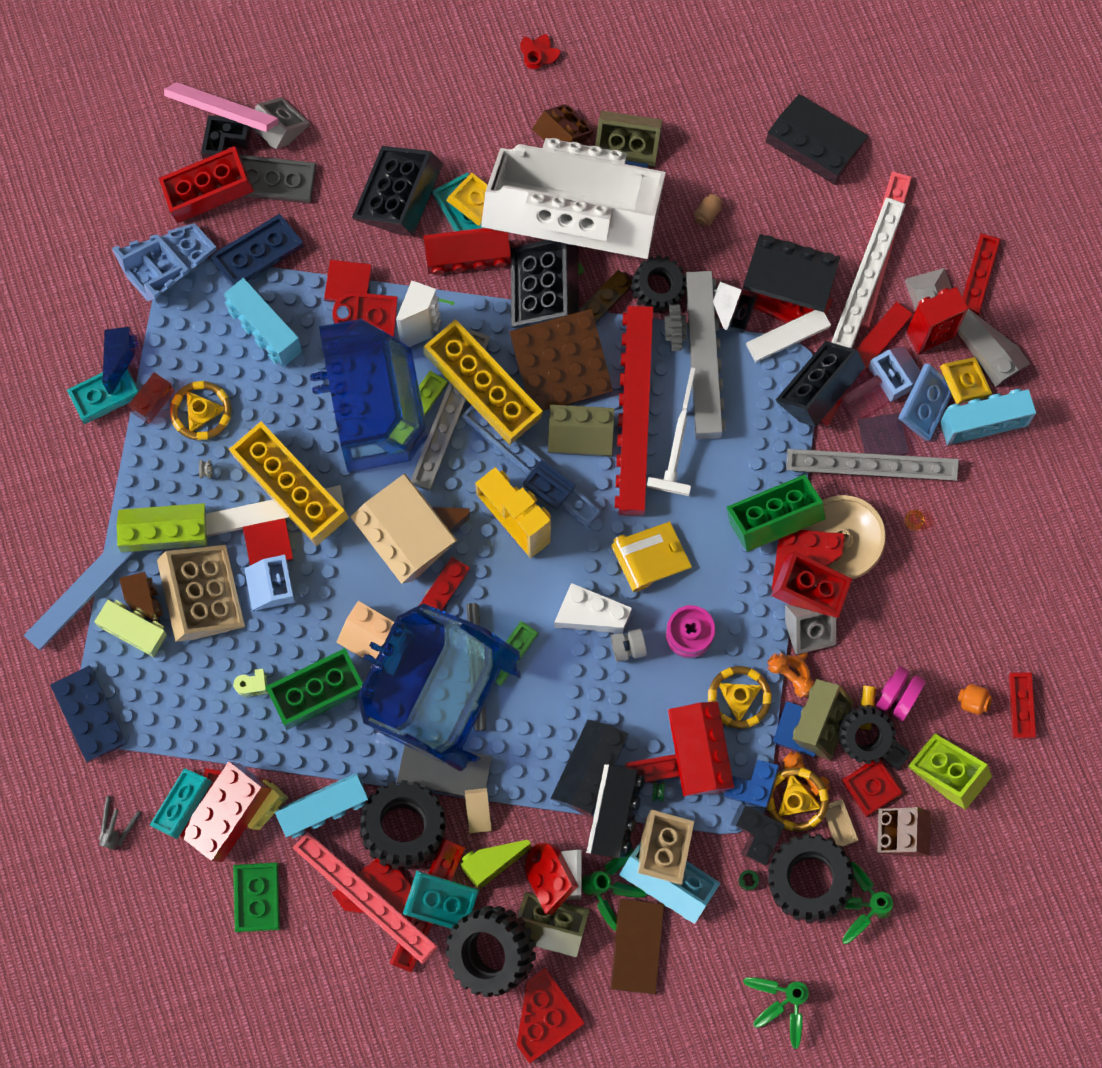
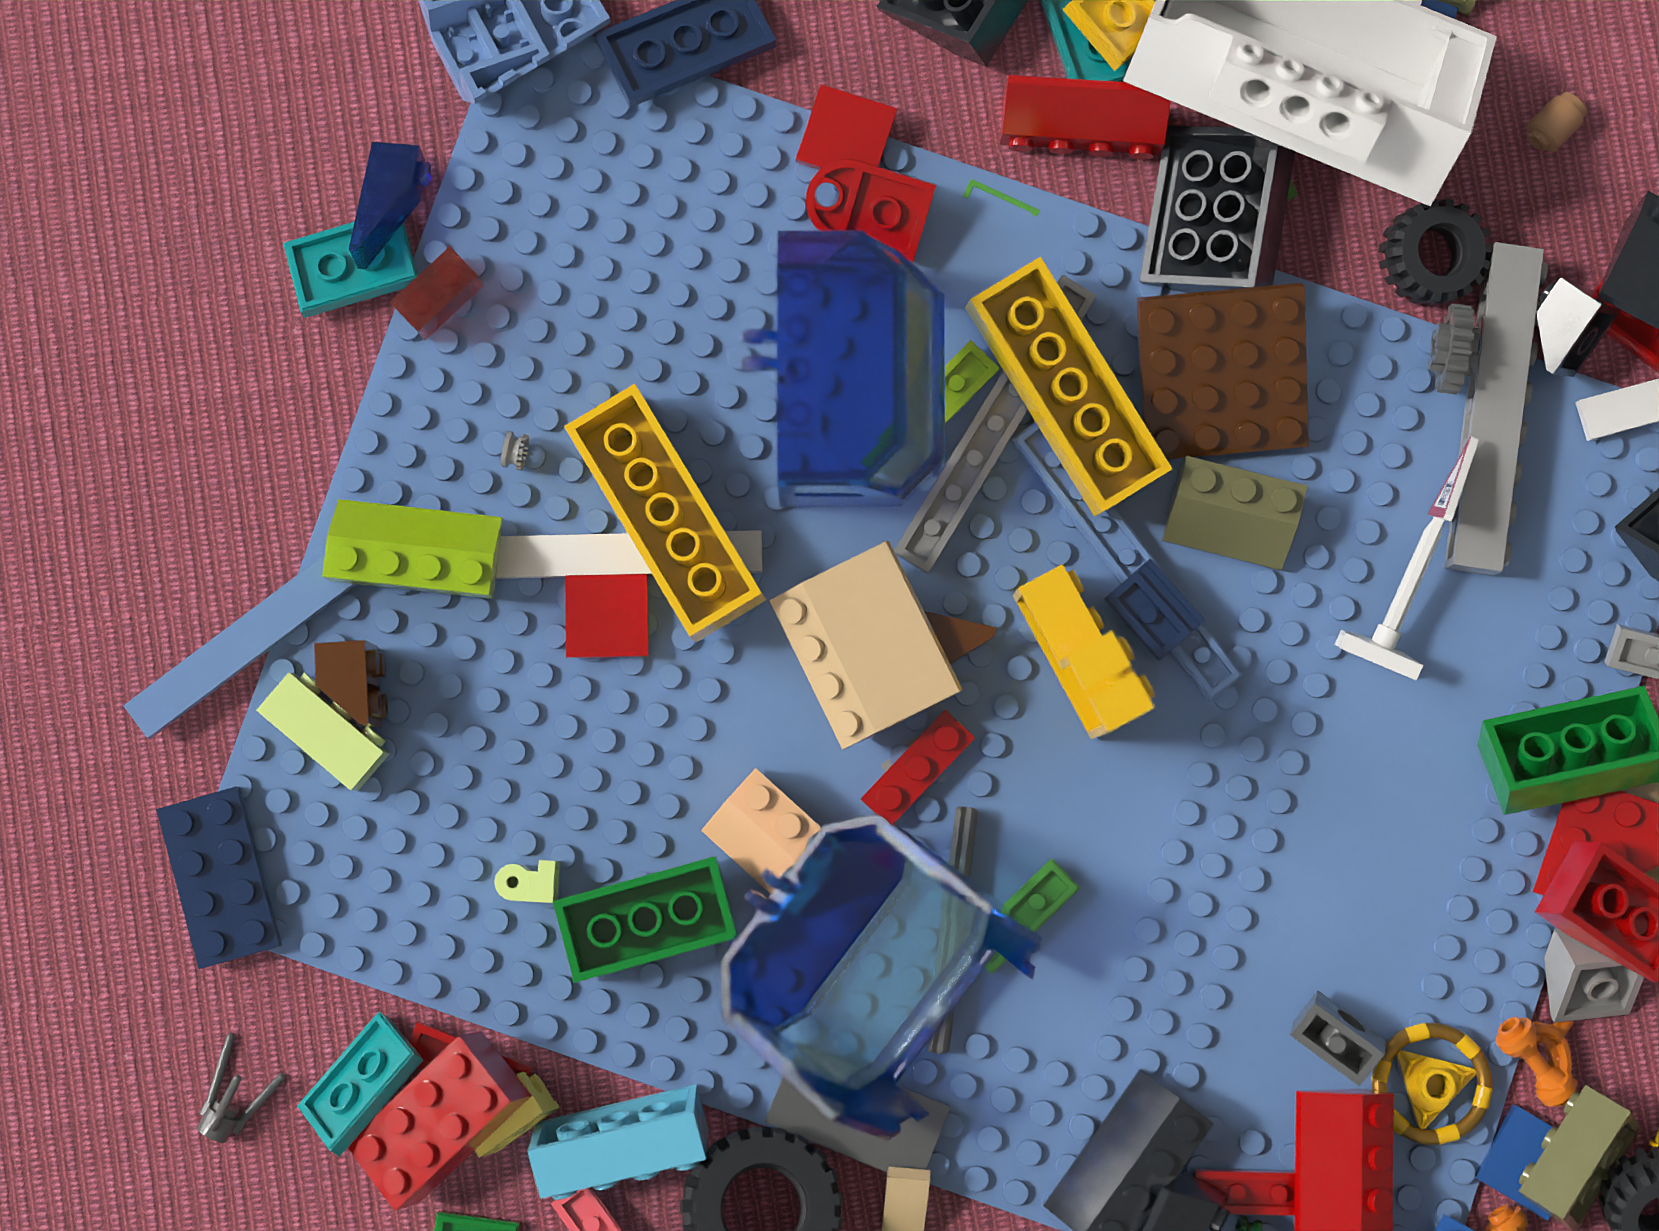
camera: 10 degrees right, 10 degrees up
(200, 410) = (526, 333): yellow piece -> none
(200, 592) = (464, 687): tan slope -> none
(262, 322) = (671, 185): medium azure brick -> none
(269, 583) = (596, 697): light blue slope -> none
(418, 314) = (972, 233): white slope -> none
(591, 612) = (1188, 869): white wedge -> none
(608, 295) = (1332, 254): dark brown plate -> none
(635, 411) = (1343, 493): red brick -> none
(635, 642) = (1259, 944): light grey wheel -> none
(650, 555) = (1318, 781): yellow door -> none
(684, 680) = (1338, 1038): none -> dark grey brick
(693, 619) = (1390, 952): dark pink wheel -> none

